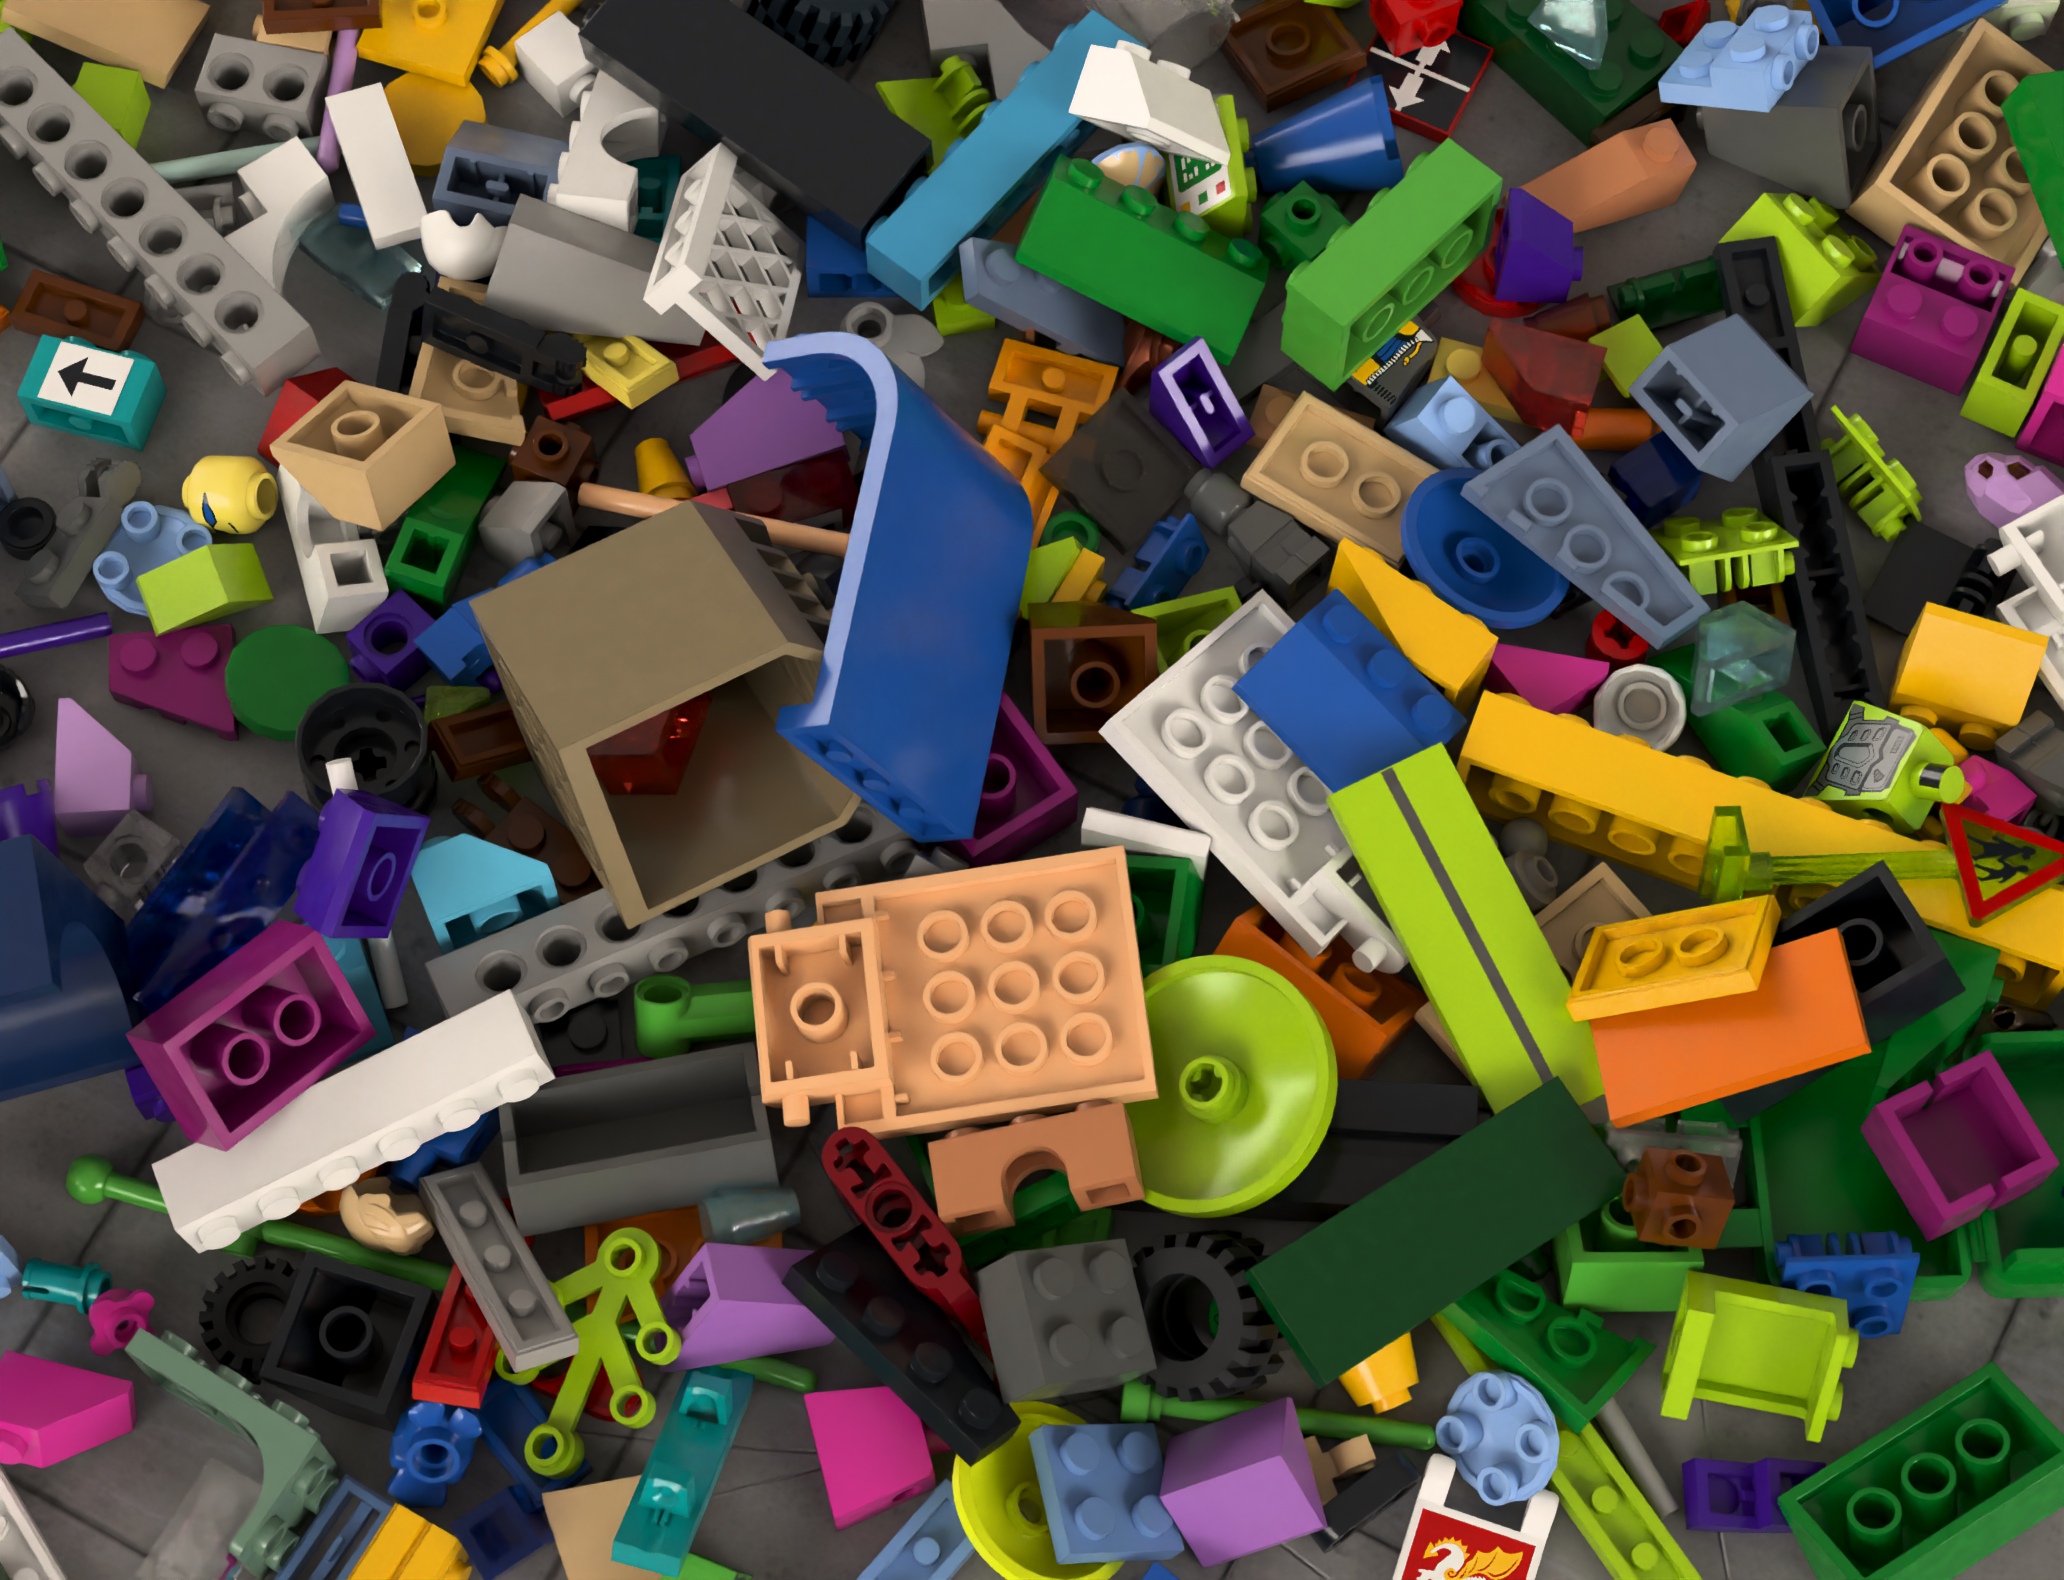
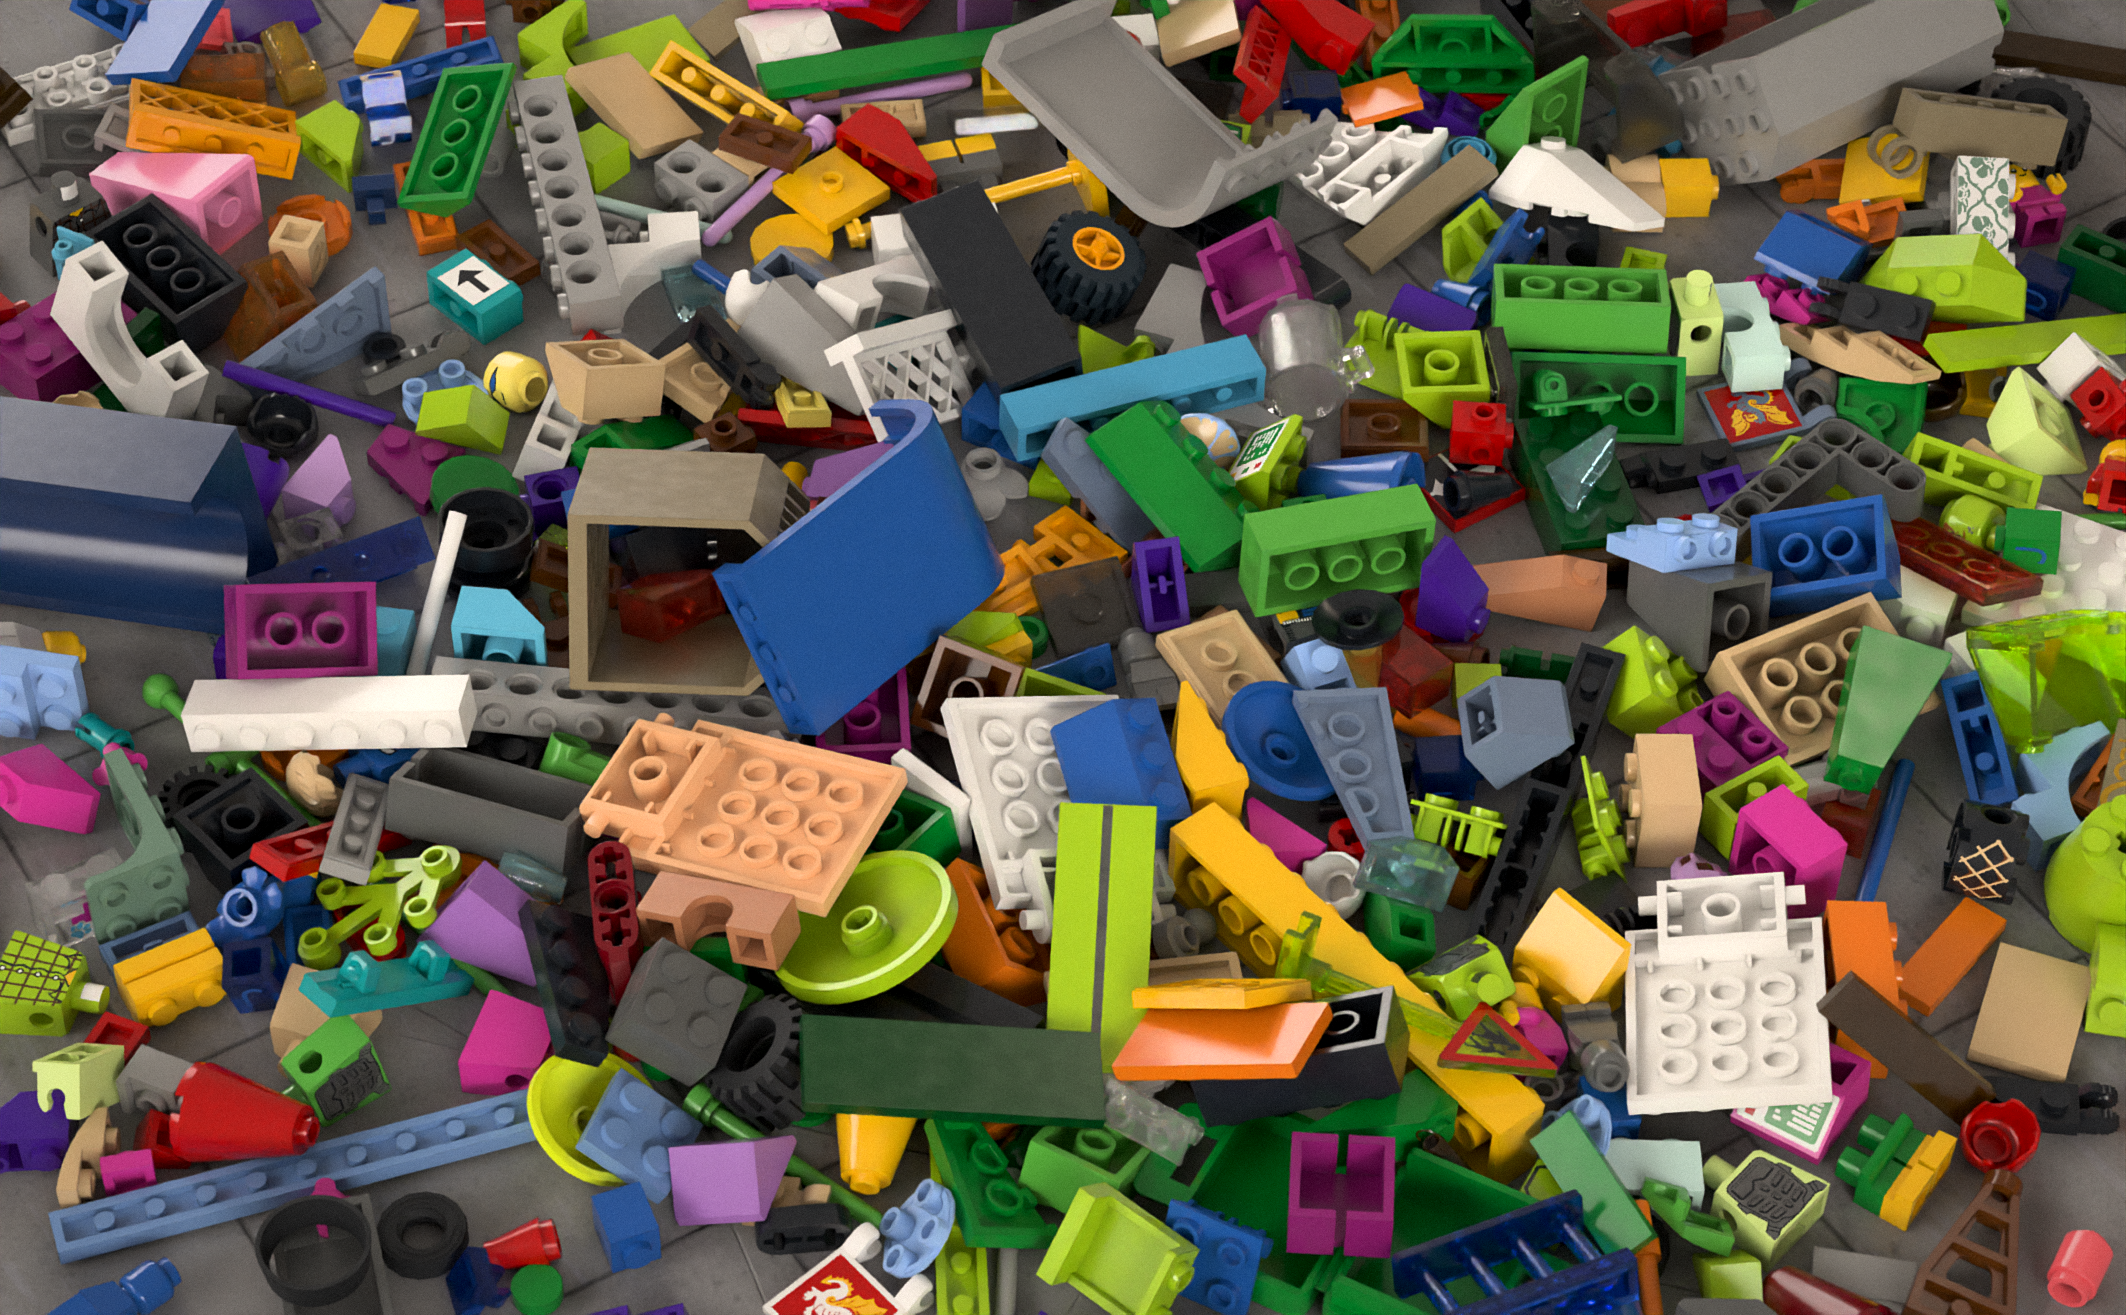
camera: 30 degrees right, 20 degrees down
(359, 865) = (431, 571): dark purple slope -> none
(377, 164) = (735, 242): white tile -> none
(1149, 103) = (1241, 396): white slope -> none
(1451, 86) = (1472, 489): none -> black cone
(1469, 329) = (1358, 619): none -> black dish
(1679, 1198) = (1123, 1129): reddish brown brick -> none
(1926, 404) = (1660, 799): none -> tan brick

